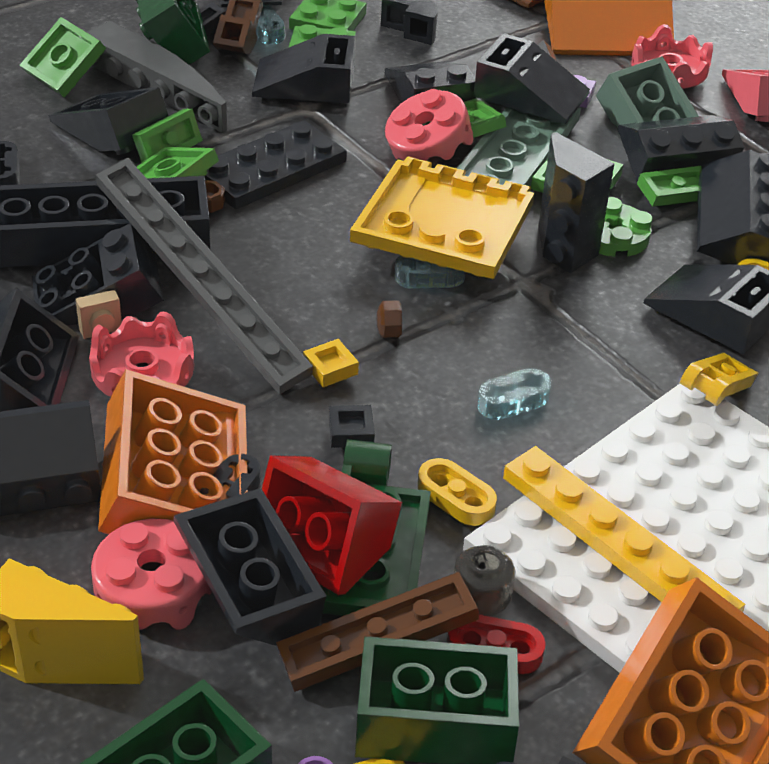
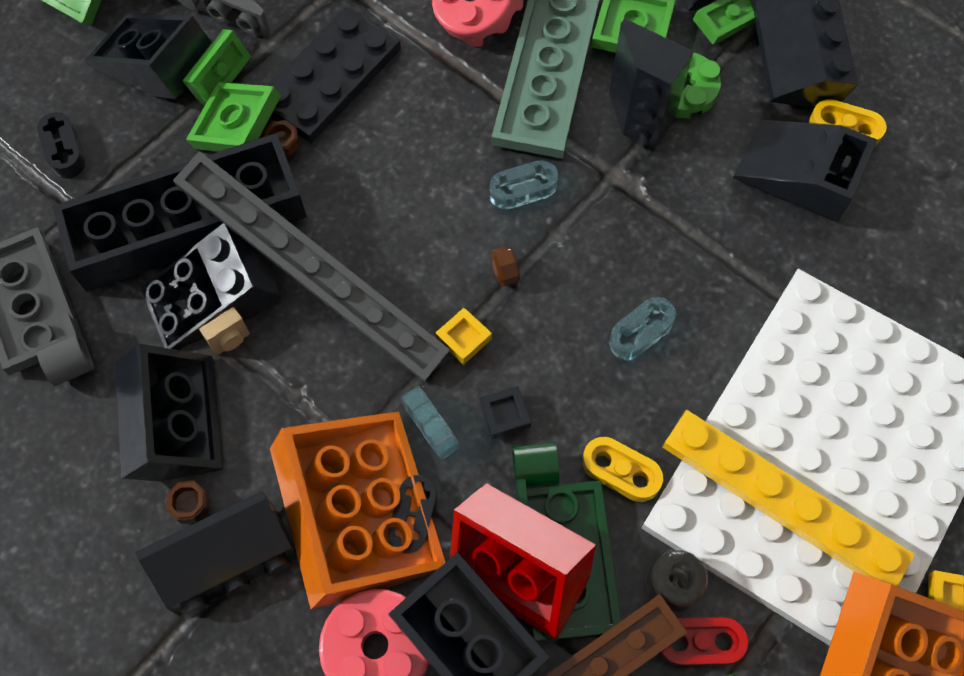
camera: 10 degrees left, 25 degrees up
(136, 342) = (280, 357): coral plate -> none
(273, 417) = (430, 422): none -> clear light blue beam
(444, 216) = (524, 122): yellow hinge -> none
(718, 377) = (832, 274): yellow plate -> none

